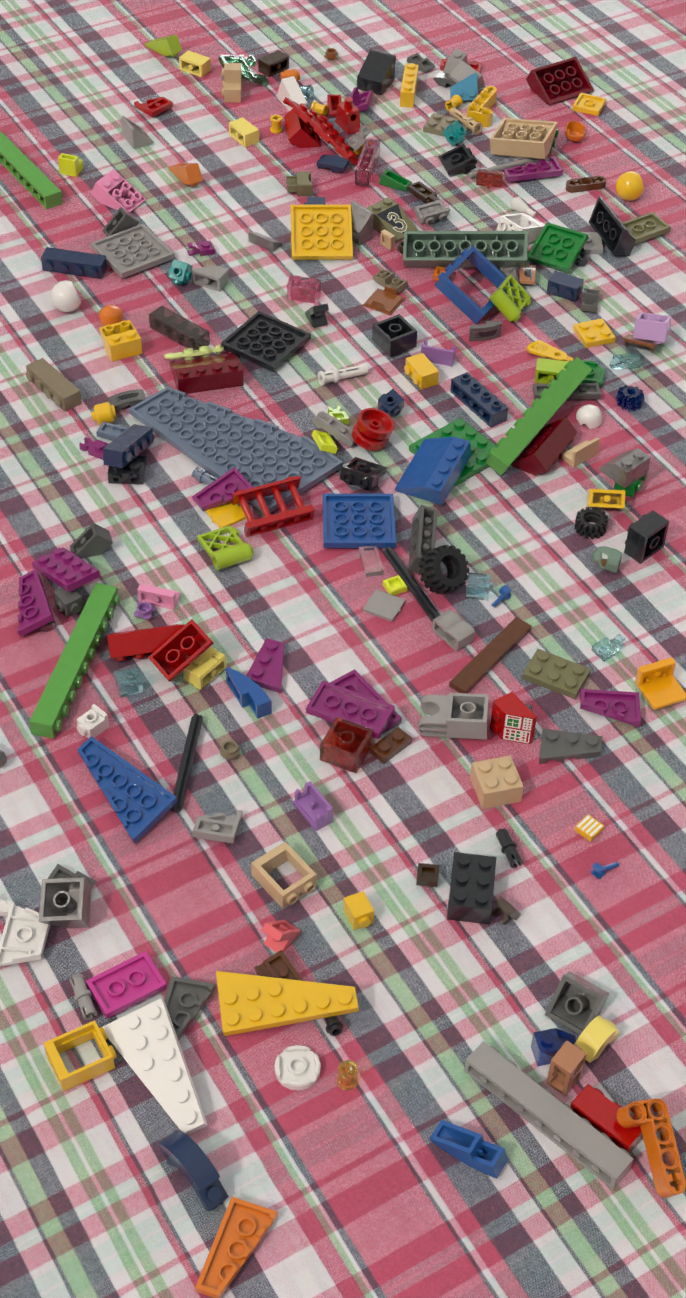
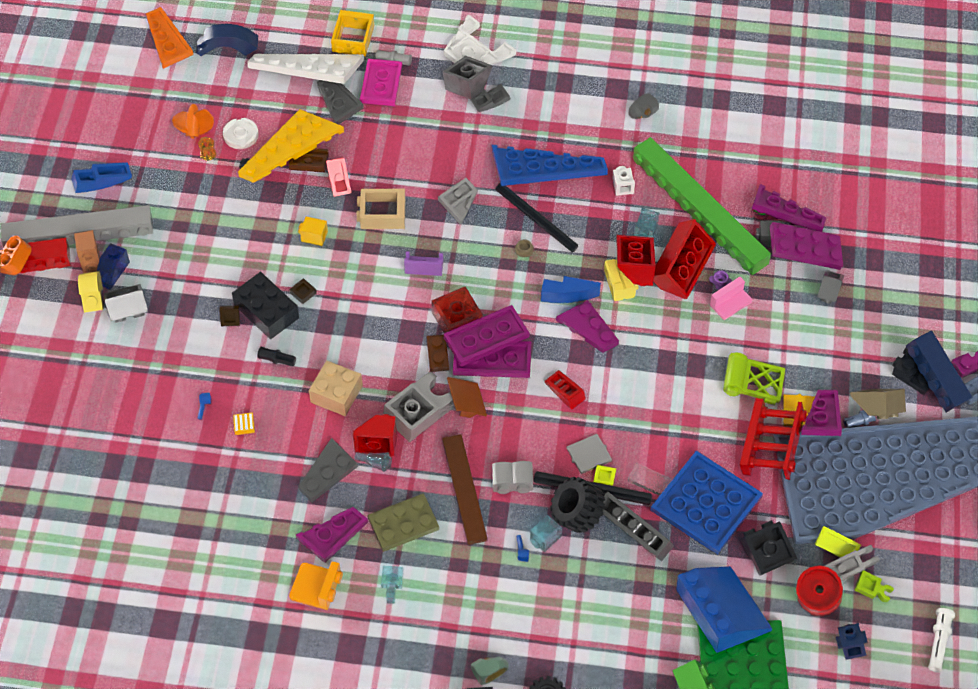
camera: 130 degrees right, 10 degrees up
(184, 464) = (881, 402): none -> dark tan slope
(333, 1114) = (193, 122): none -> orange piece
(343, 634) = (571, 399): none -> red slope
(416, 695) = (466, 397): none -> dark orange piece

